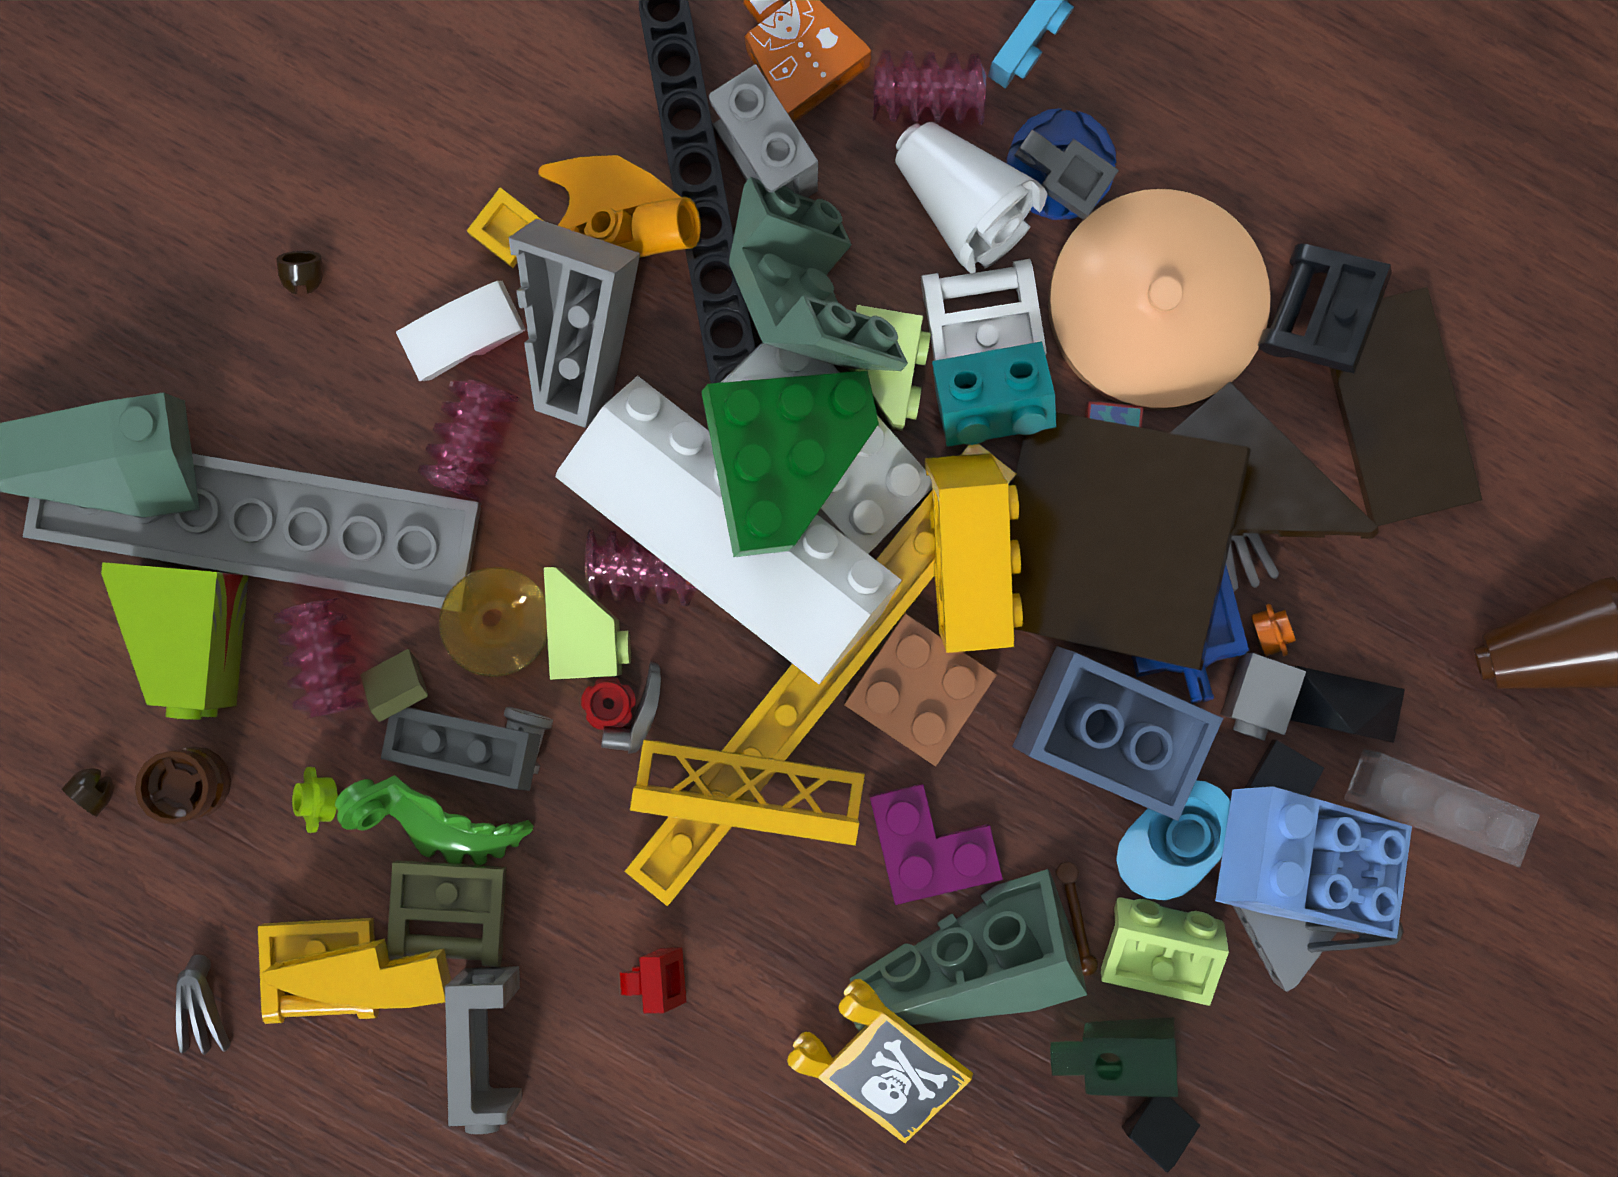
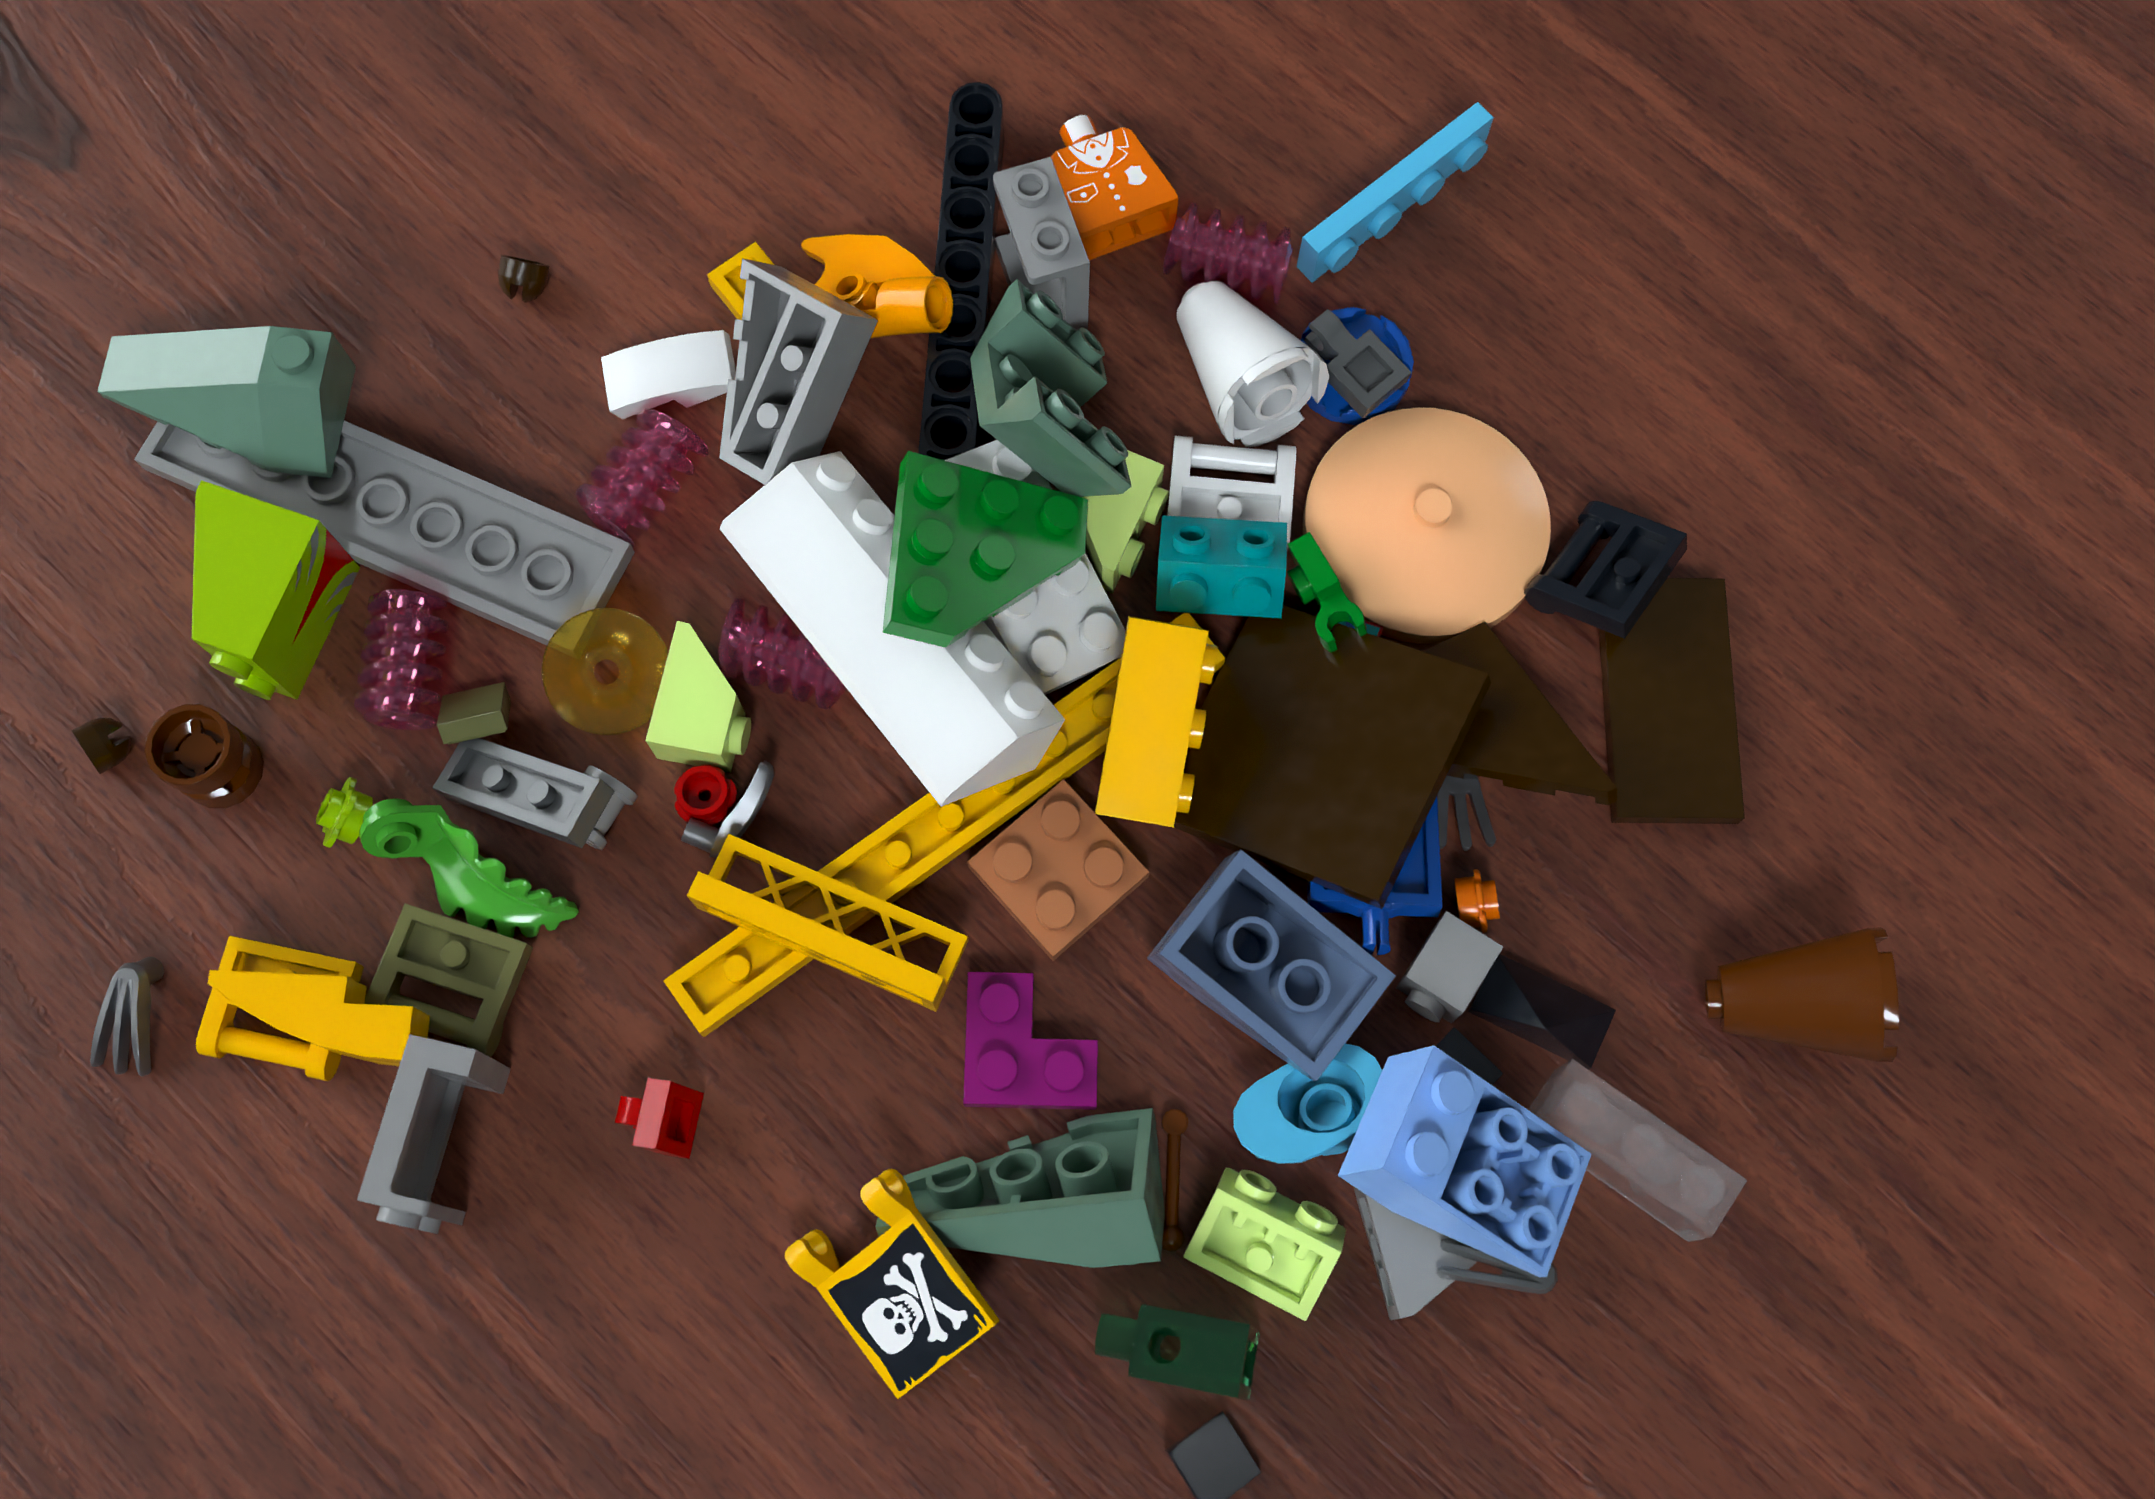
camera: 10 degrees right, 15 degrees down
(1078, 389) = (1317, 581): none -> green plate

